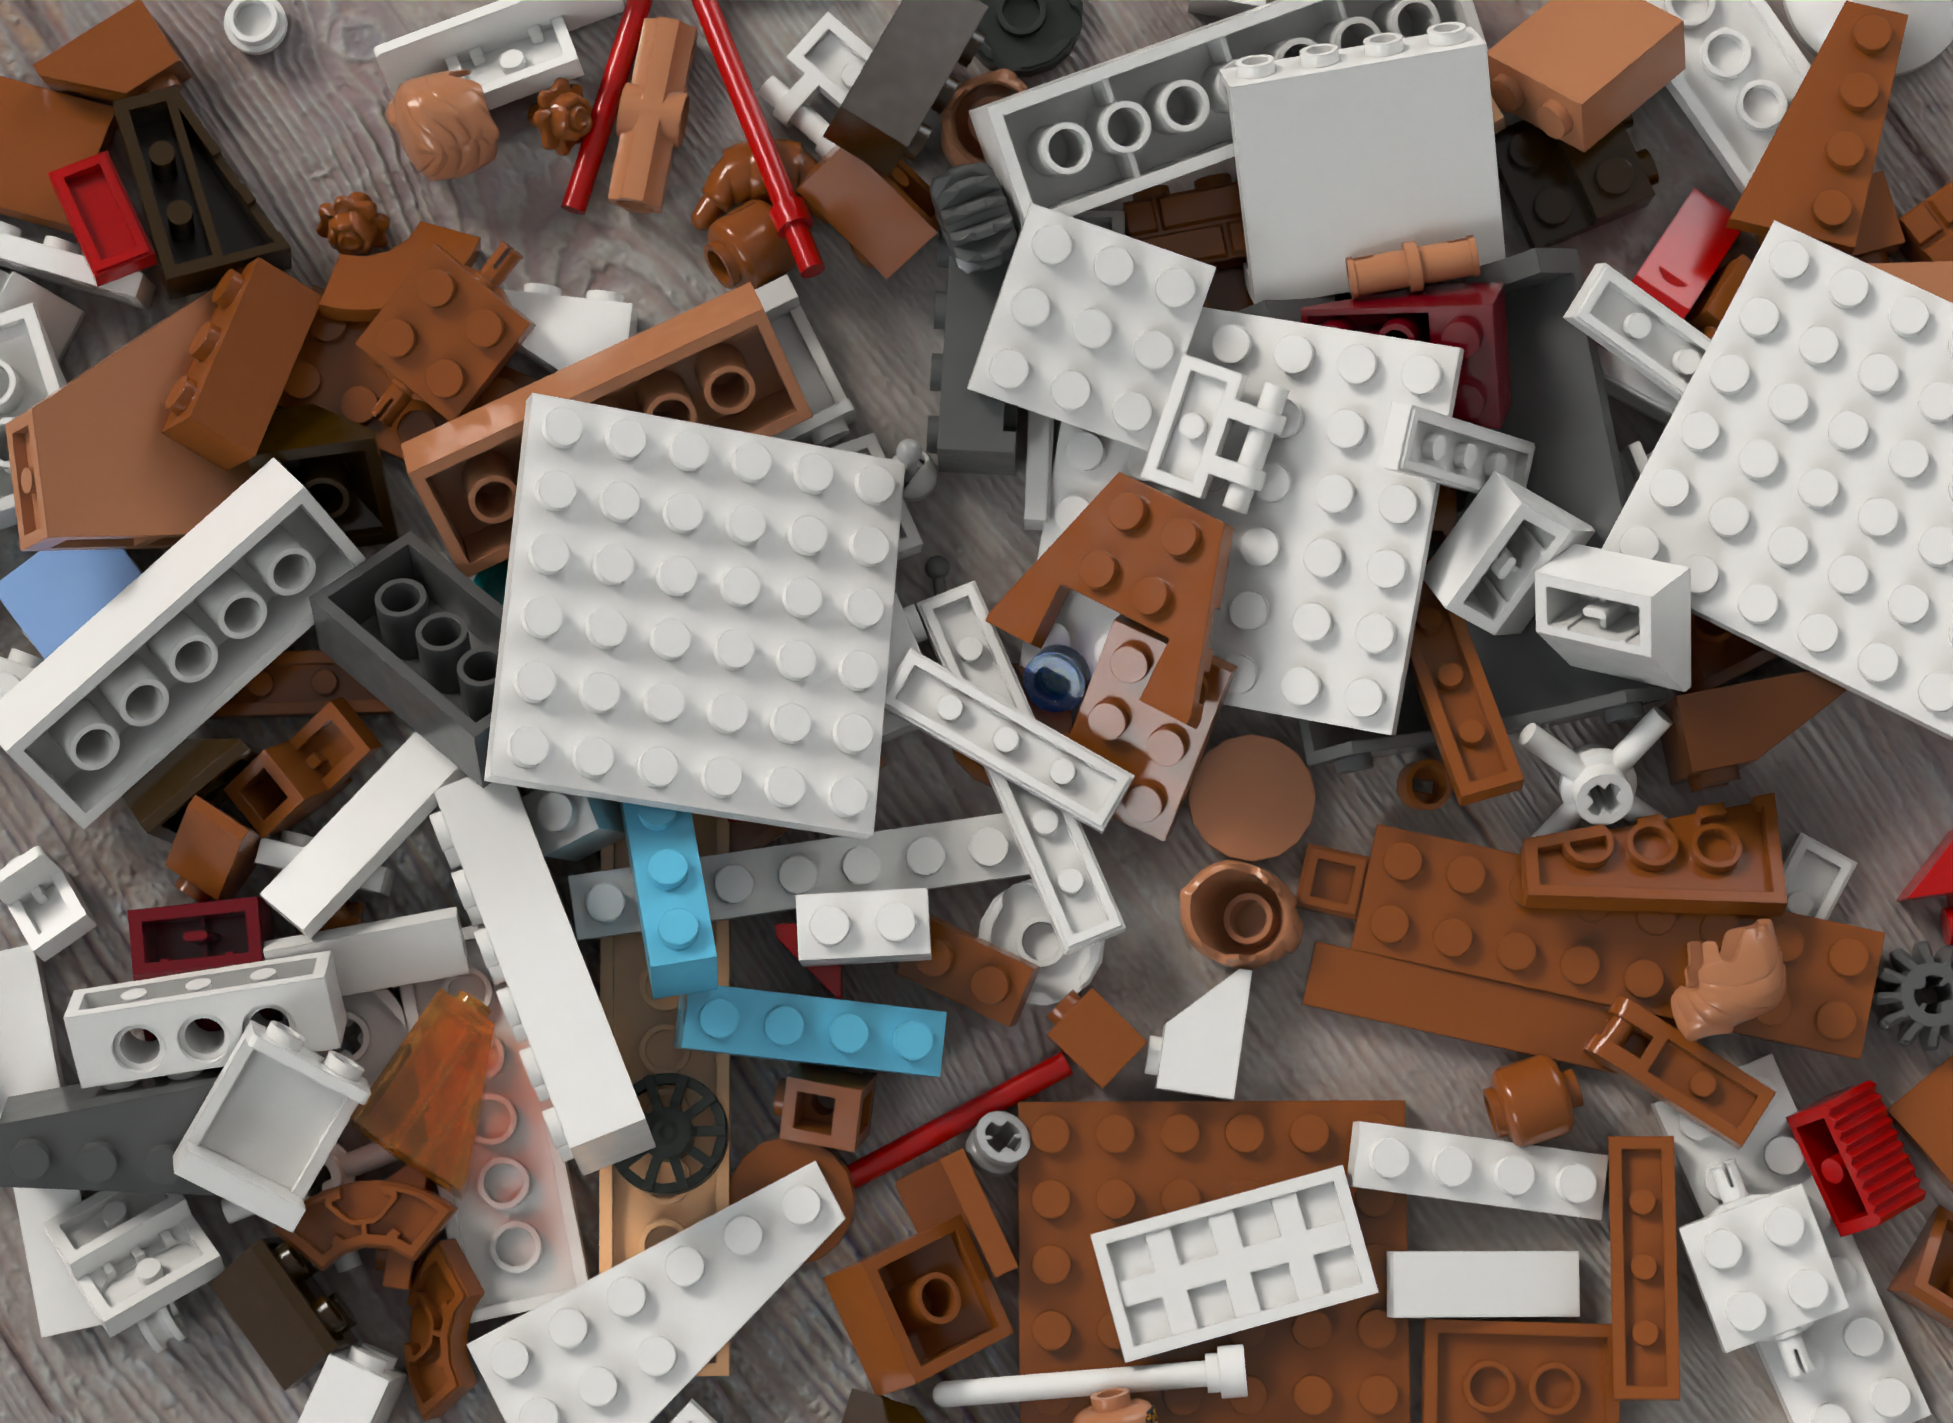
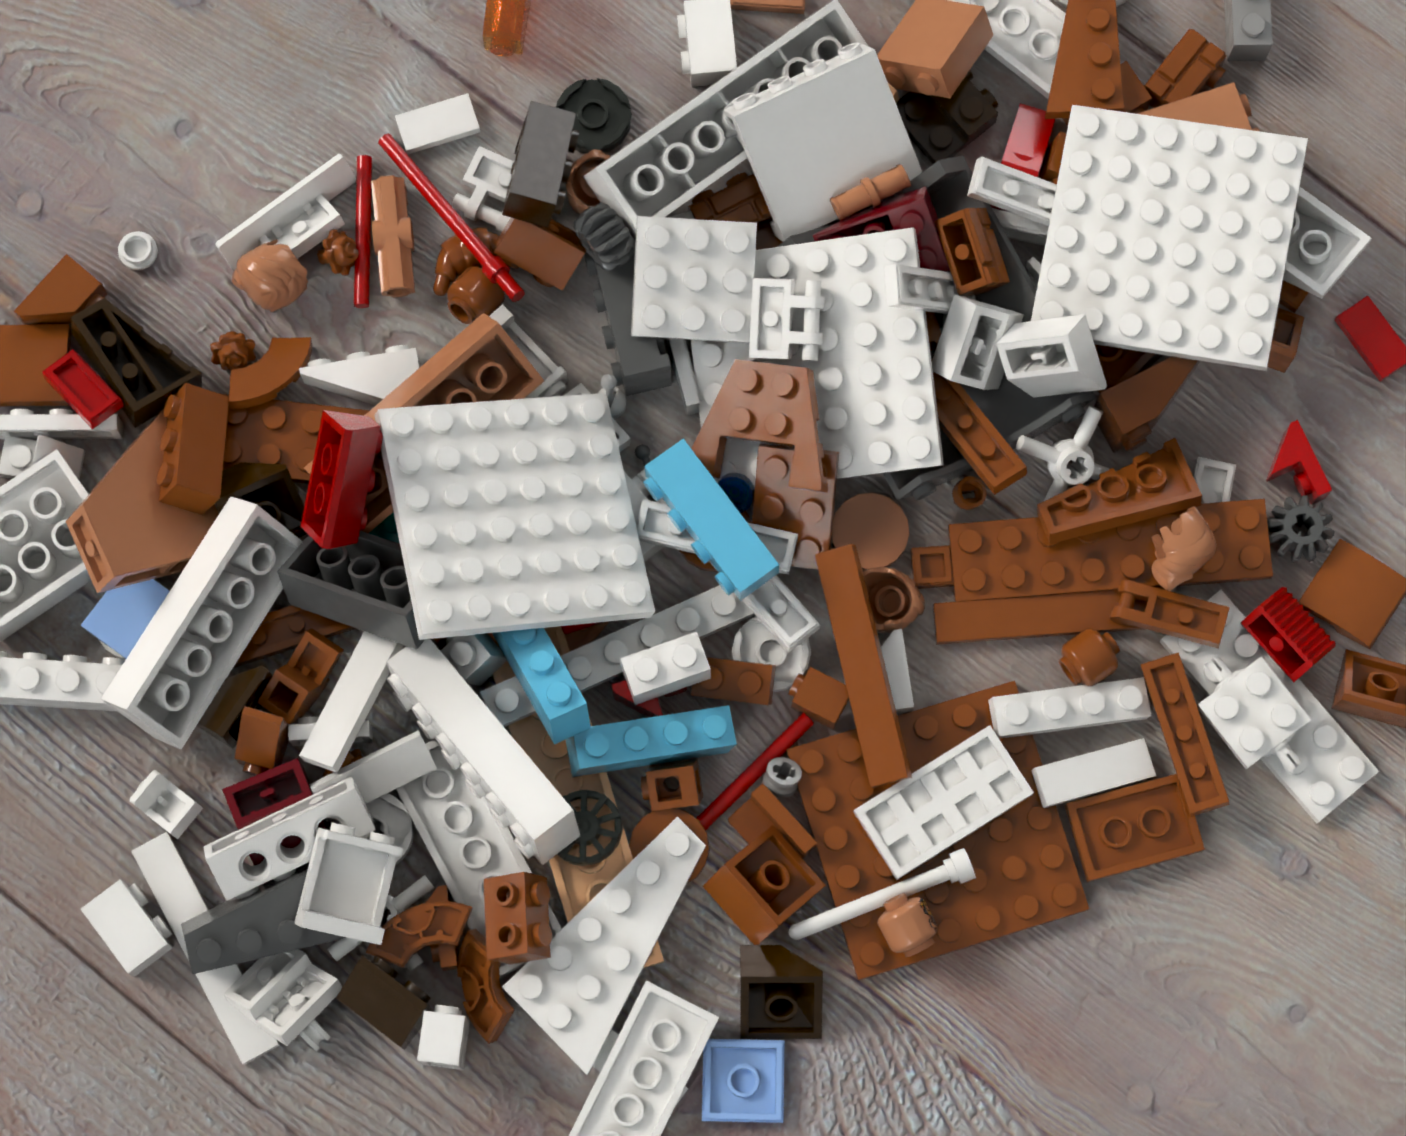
camera: 20 degrees left, 5 degrees down
(434, 1092) = (438, 843): clear orange slope -> none
(443, 487) = (341, 478): none -> red slope
(445, 333) = (303, 389): dark orange plate -> none
(519, 1248) = (517, 918): none -> dark orange brick
(1003, 715) = (711, 520): none -> medium azure brick
(1173, 1014) = (863, 666): none -> dark orange tile
(1544, 408) = (972, 251): none -> dark orange brick

